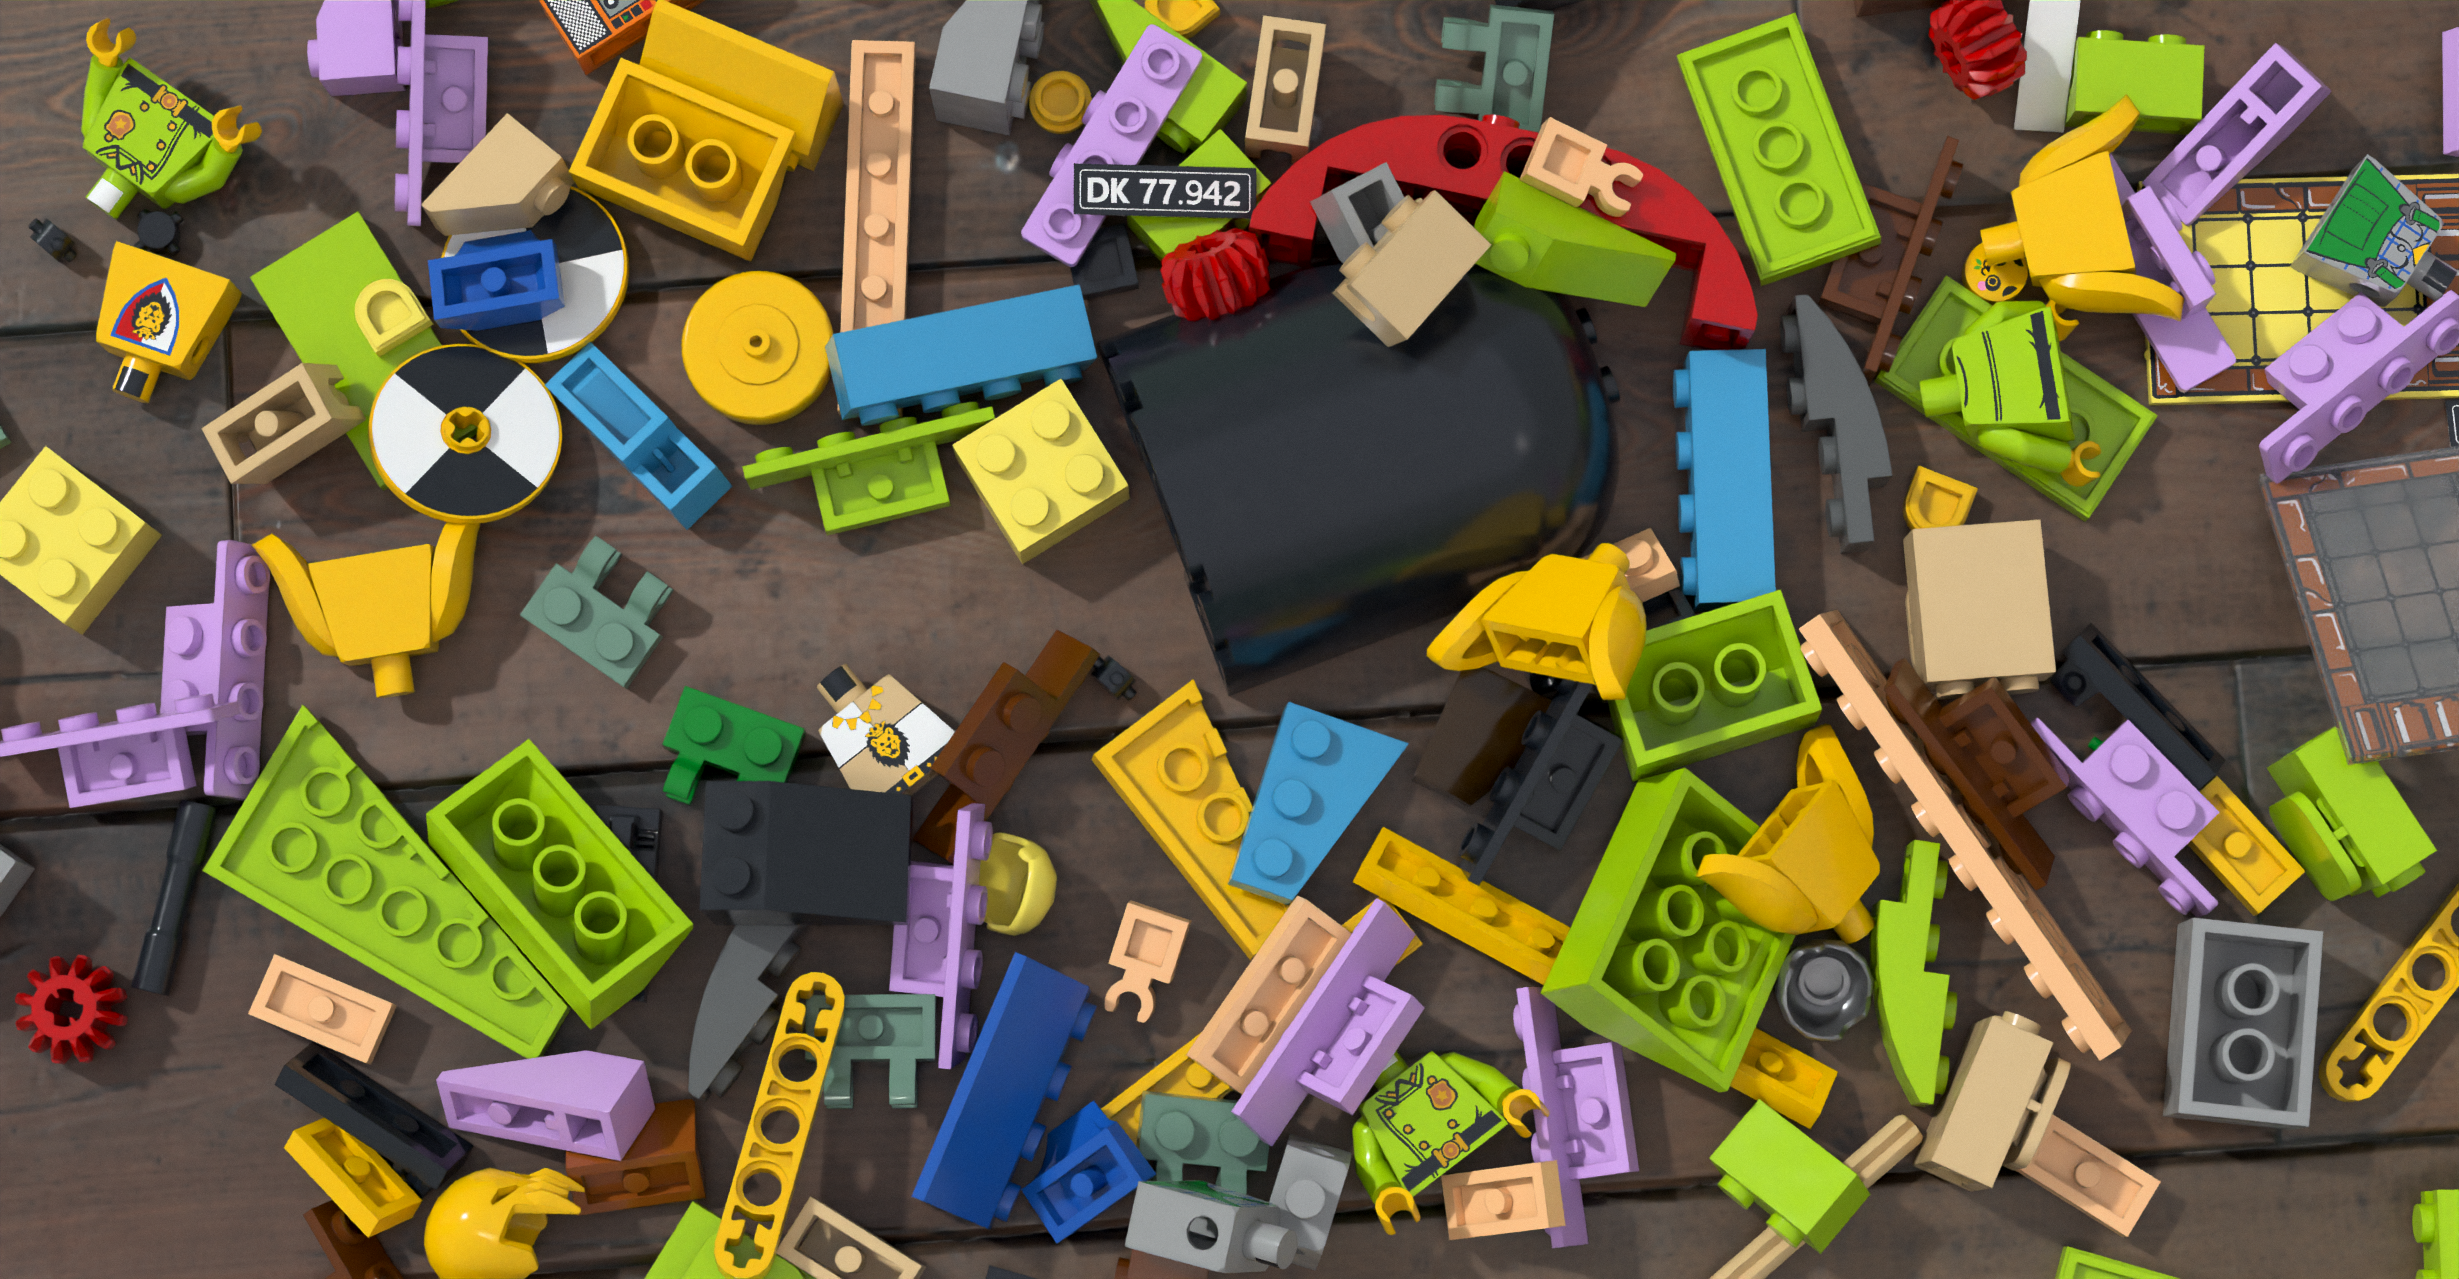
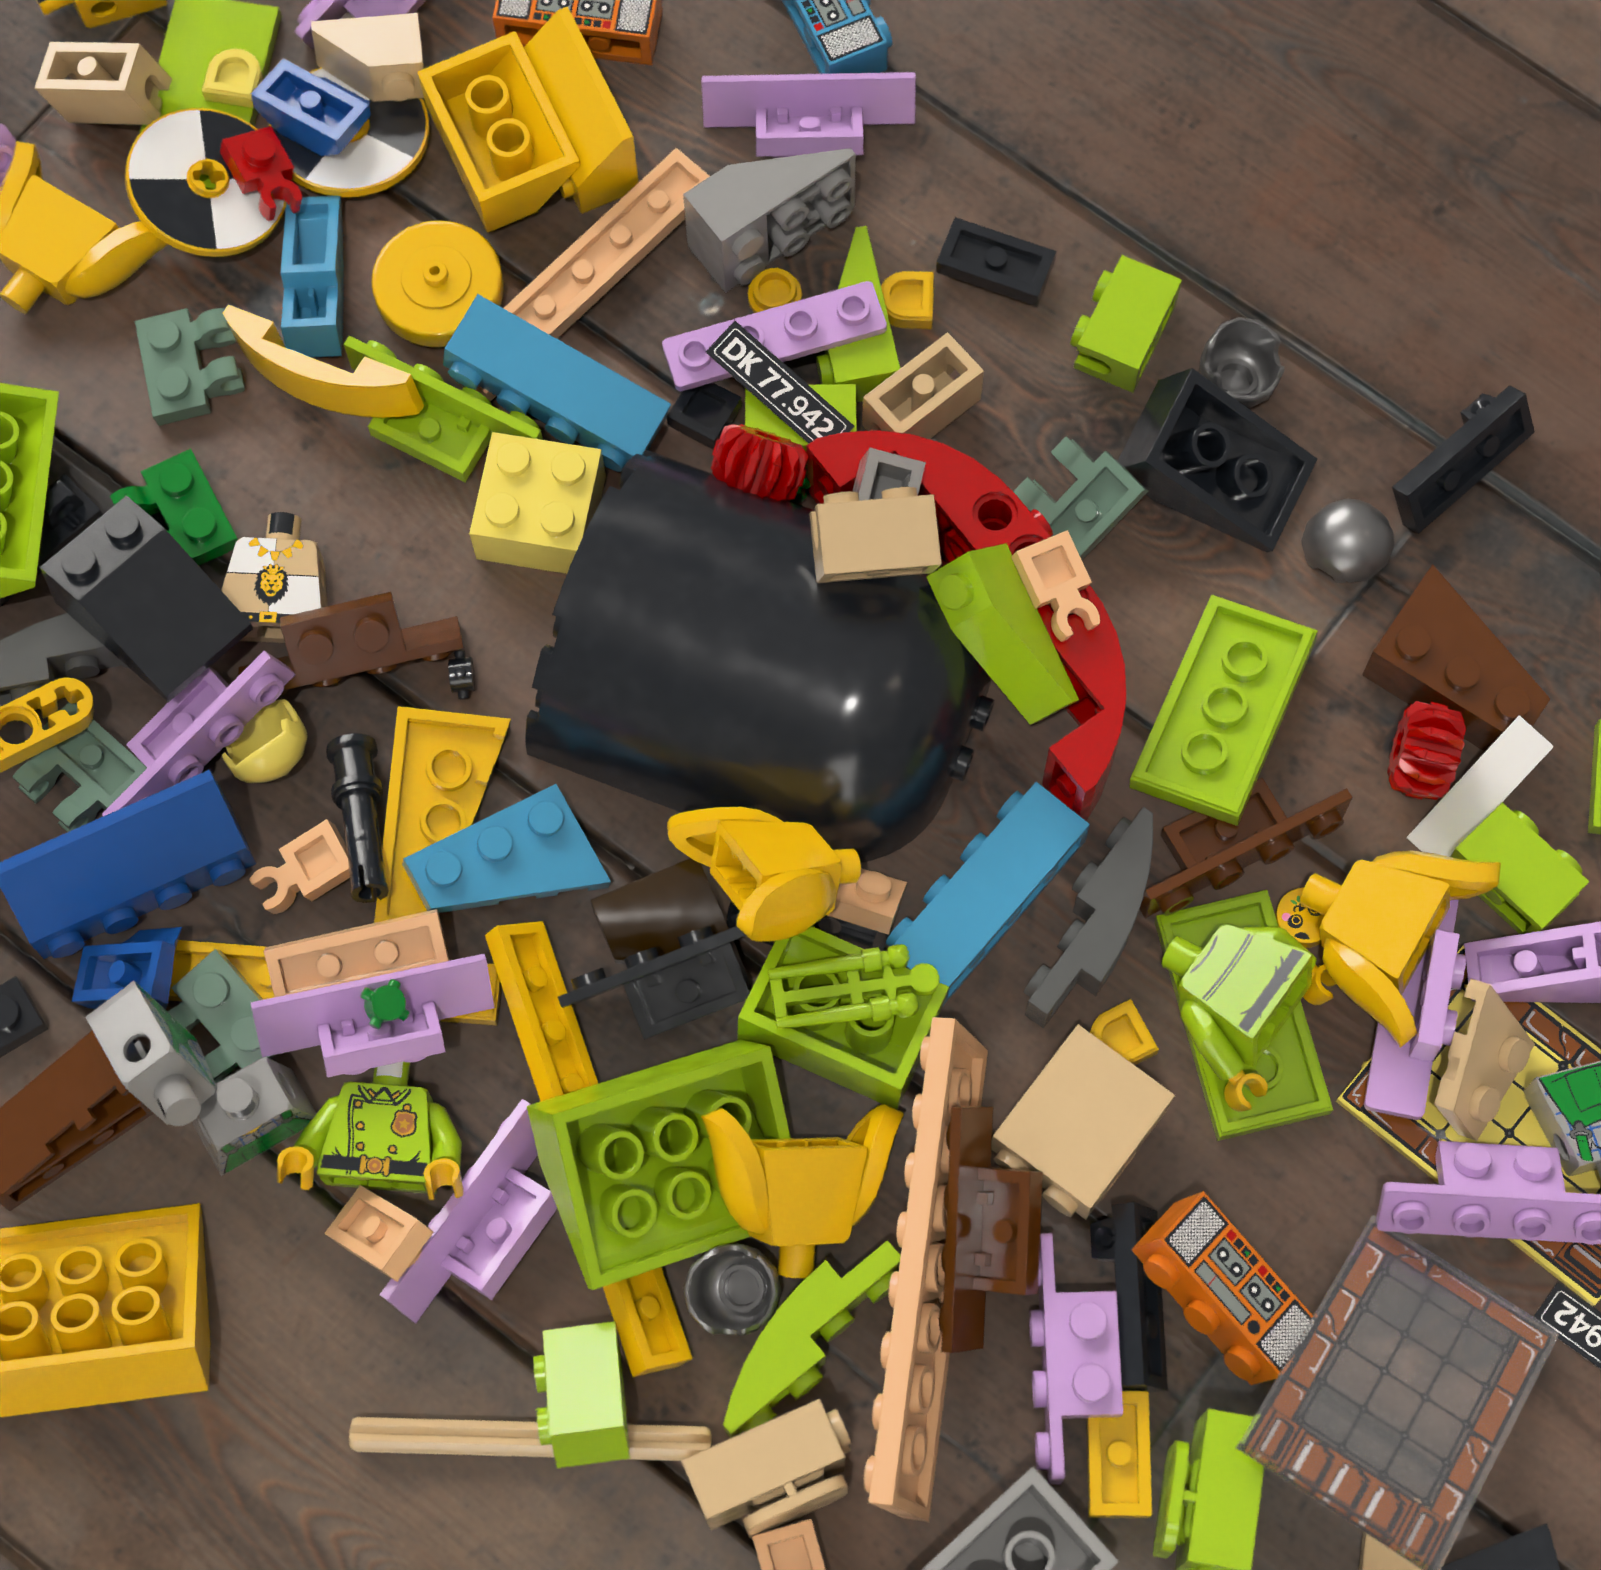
camera: 45 degrees right, 10 degrees down
(502, 375) = (262, 165): none -> red plate
(811, 498) = (368, 392): none -> yellow slope
(1132, 859) = (357, 794): none -> black pin
(1341, 1013) = (384, 1004): none -> green piece
(1755, 604) = (921, 980): none -> lime piece
(2209, 641) = (1224, 1287): none -> brick
(2250, 276) = (1482, 1063): none -> tan wing

